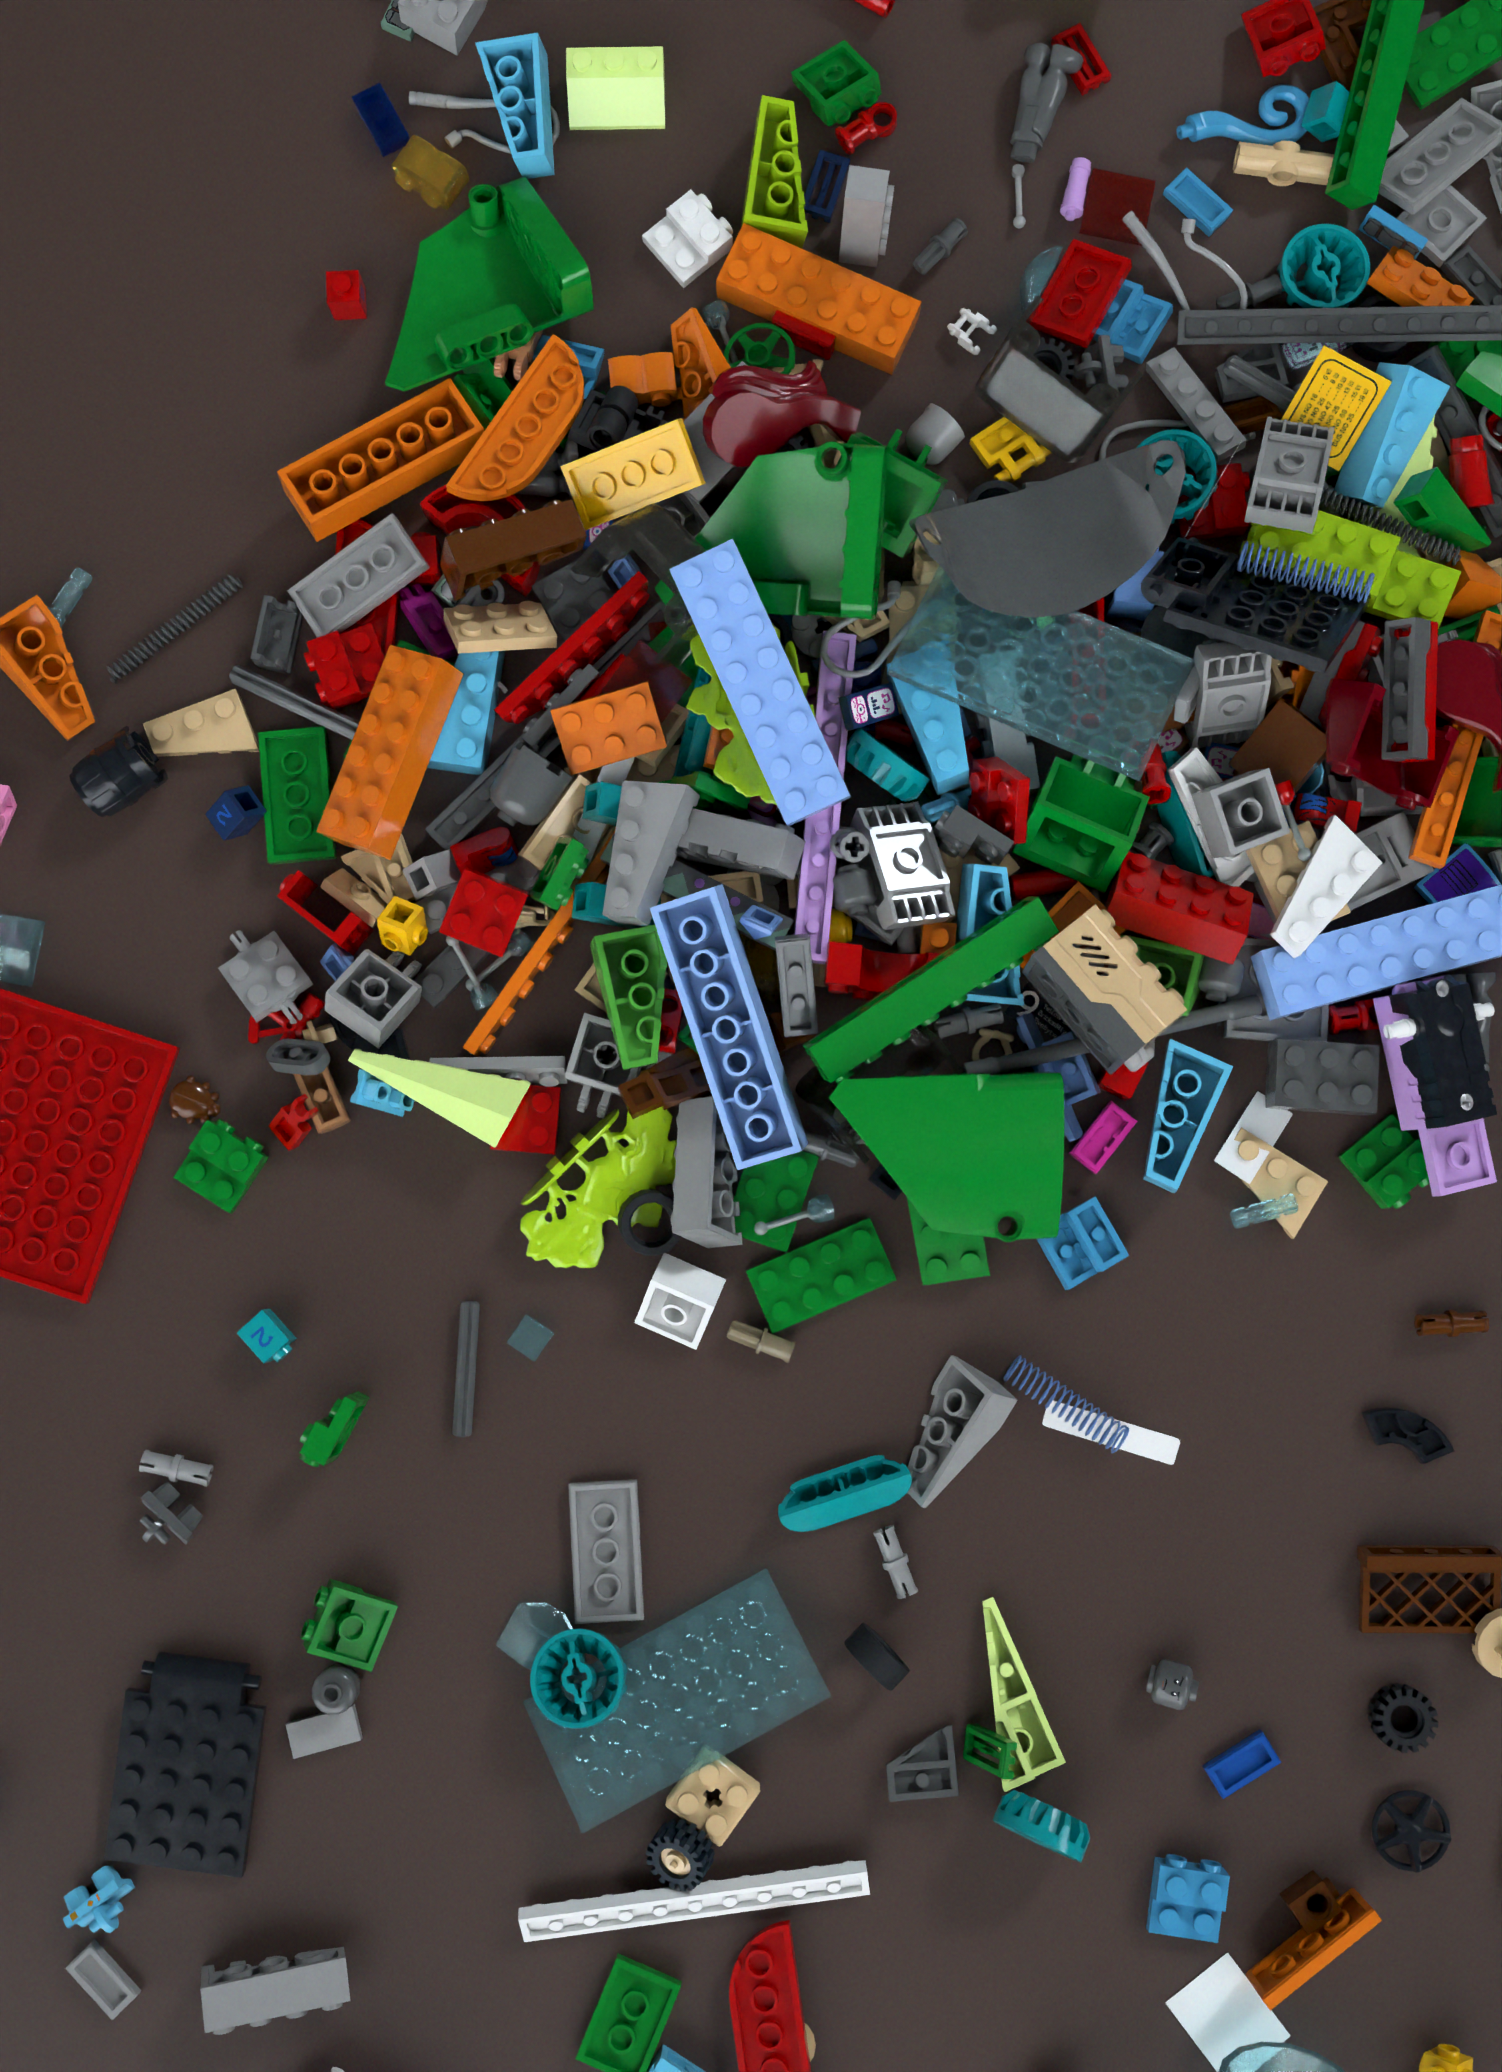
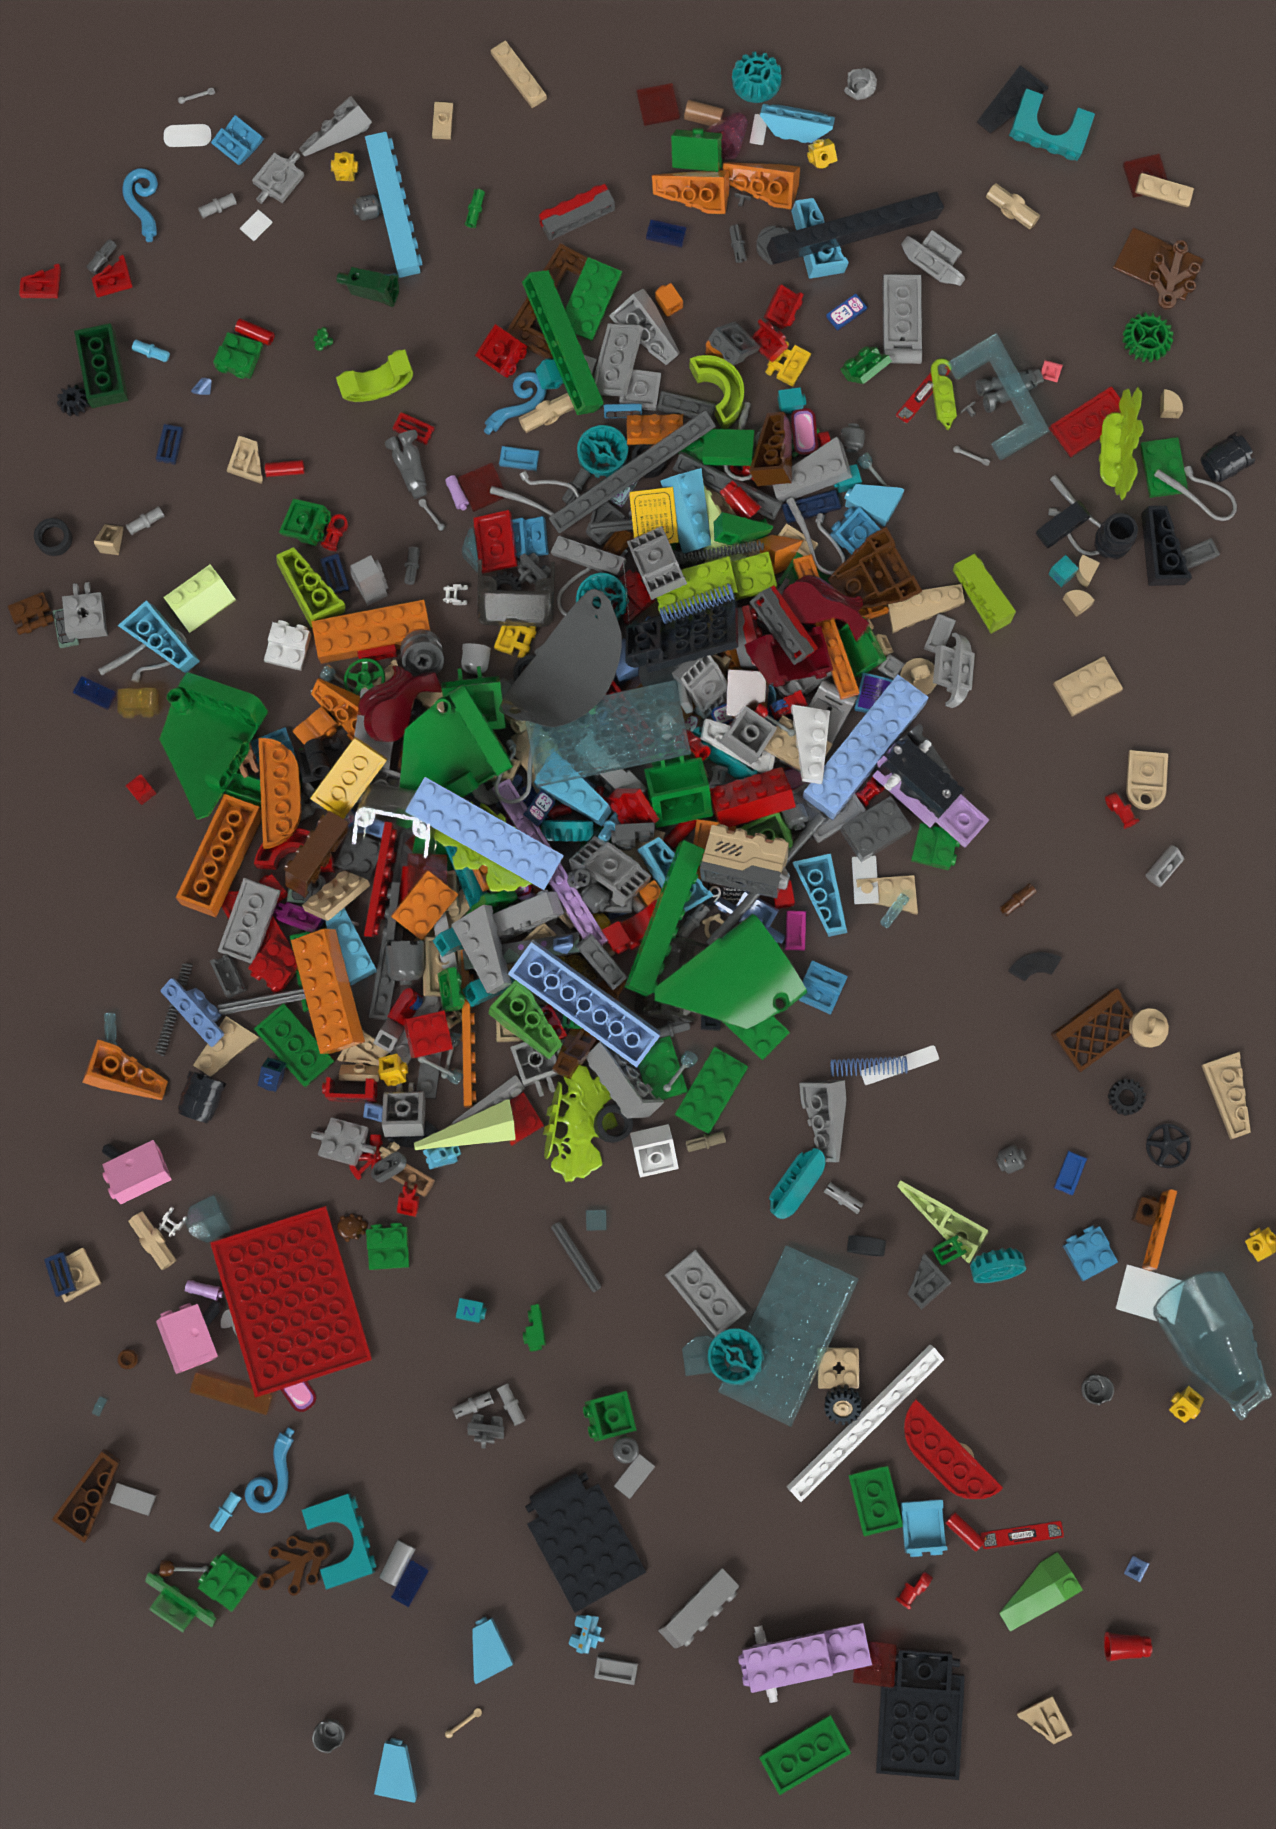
camera: 35 degrees left, 5 degrees down
(200, 650) = (195, 1010): none -> medium blue bracket
(228, 1507) = (511, 1404): none -> light grey pin
(864, 373) = (422, 652): none -> dark grey wheel

